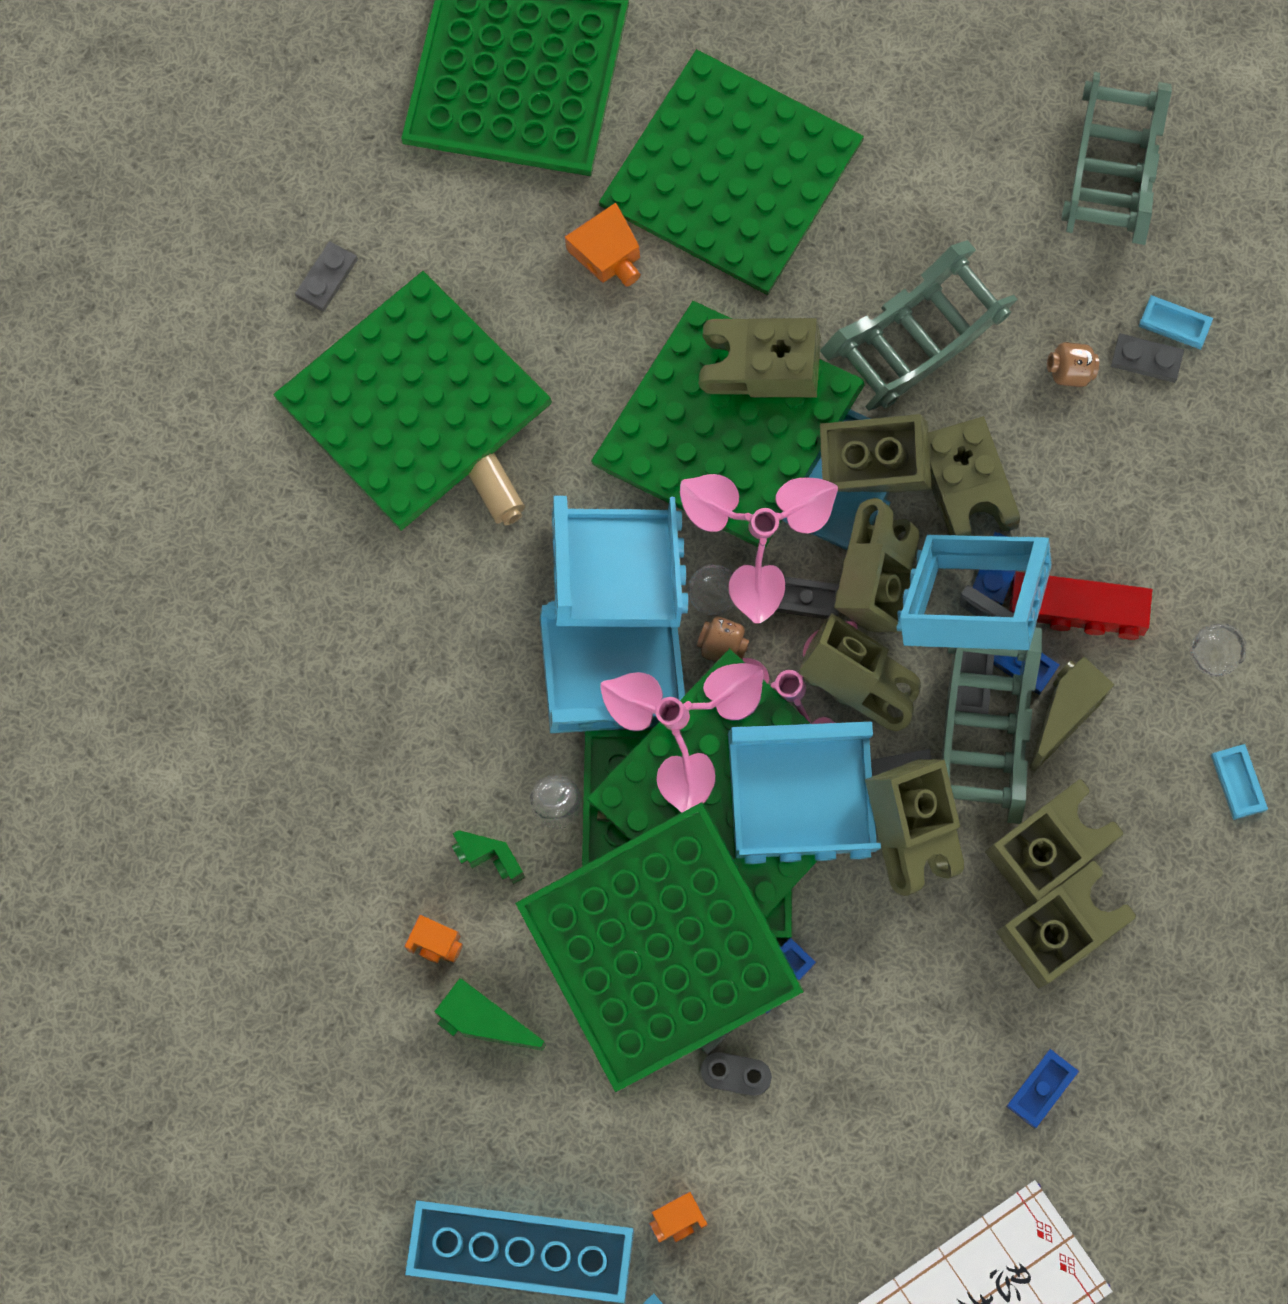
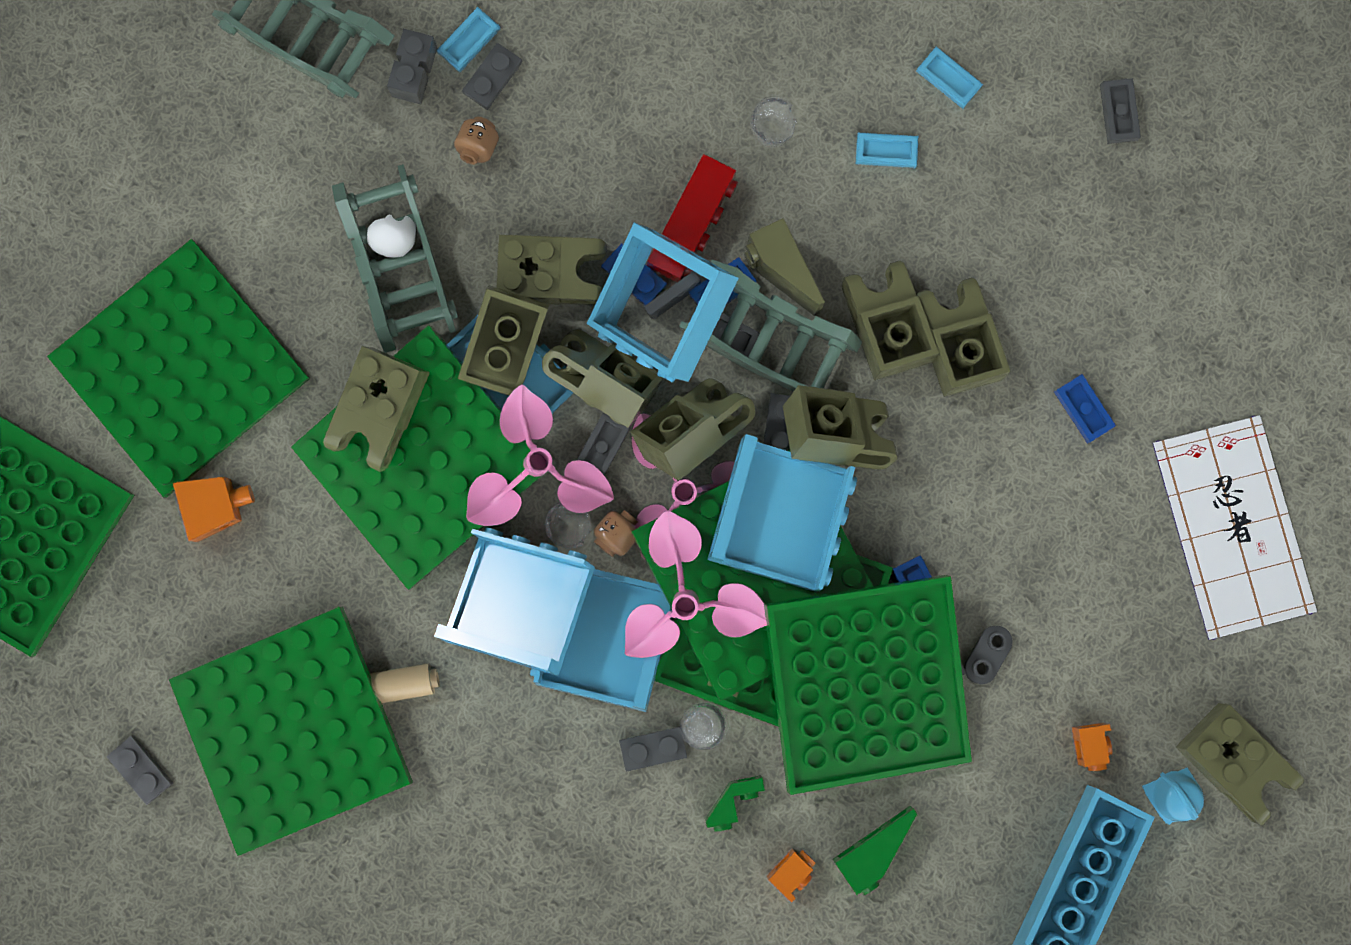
camera: 80 degrees left, 10 degrees up
(514, 757) = (653, 749): none -> dark grey plate
(940, 317) = (391, 236): none -> white hair
(1108, 272) = (406, 78): none -> dark grey piece

